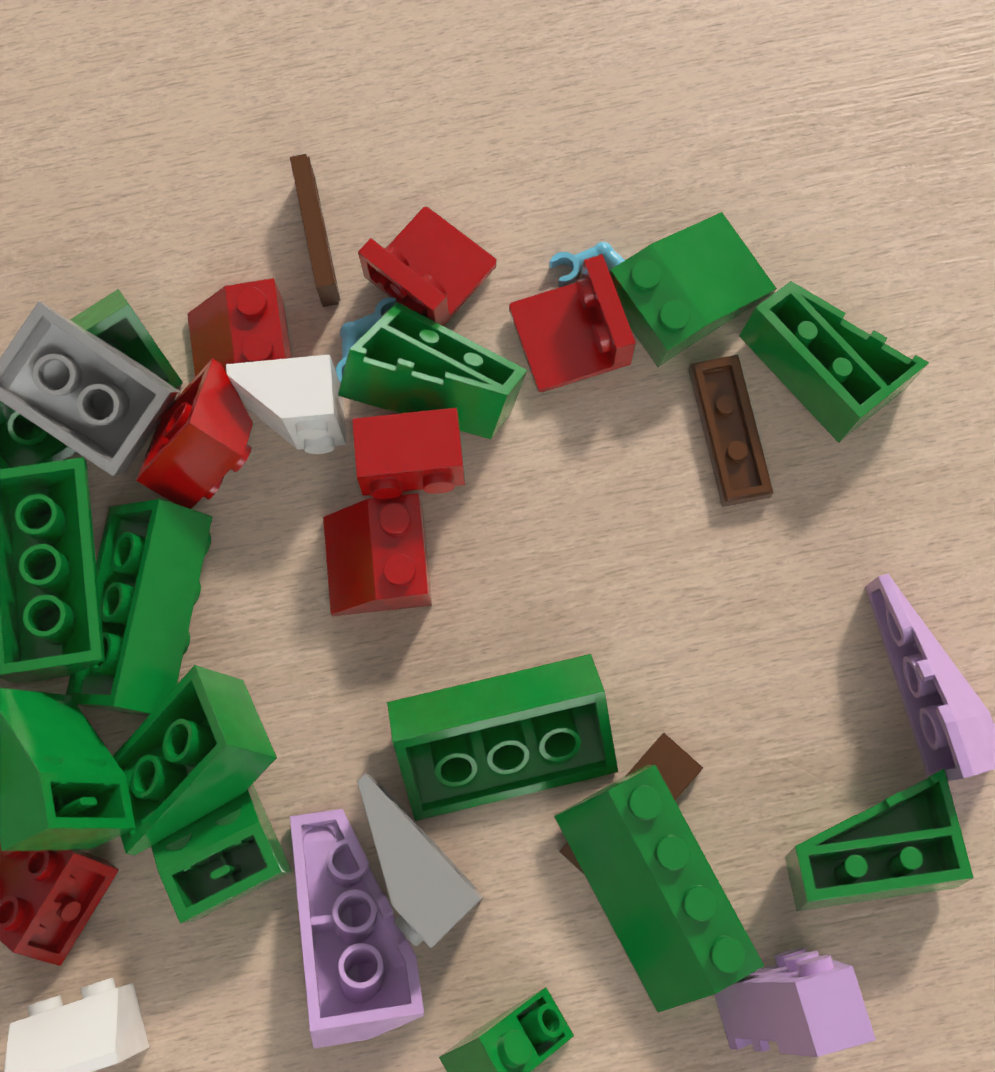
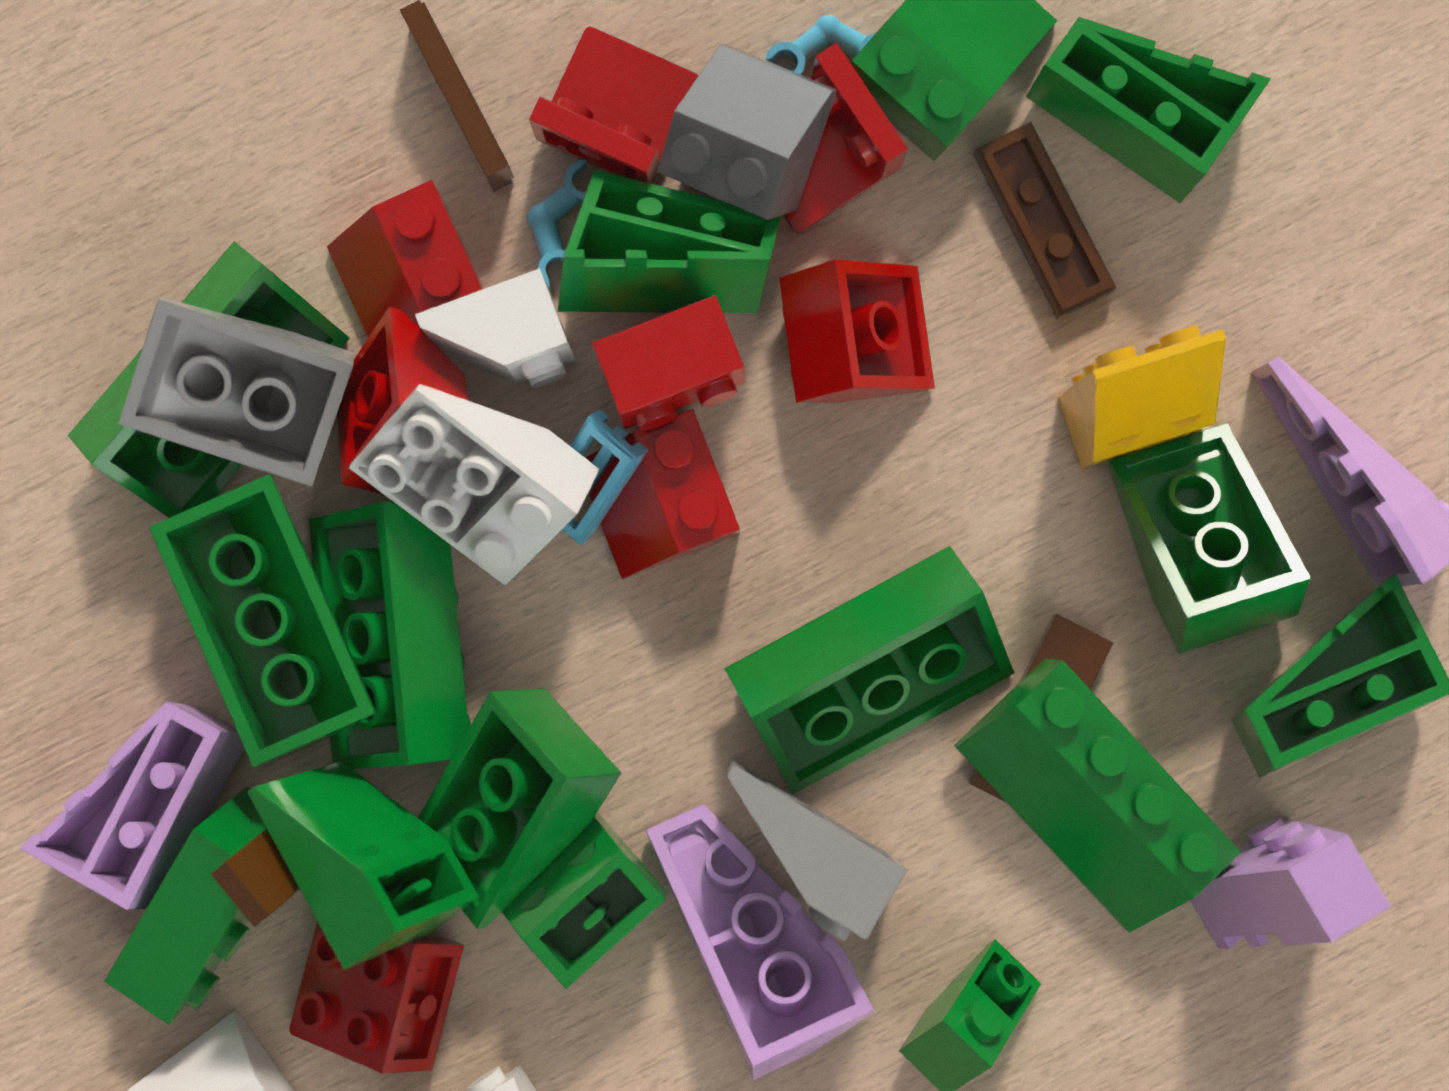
camera: 20 degrees left, 10 degrees up
(235, 497) = (477, 478): none -> white slope
(350, 505) = (613, 445): none -> medium azure tile
(518, 304) = (747, 133): none -> dark grey slope
(563, 473) = (856, 331): none -> red slope
(774, 573) = (1147, 398): none -> yellow slope
(799, 706) = (1208, 538): none -> green slope

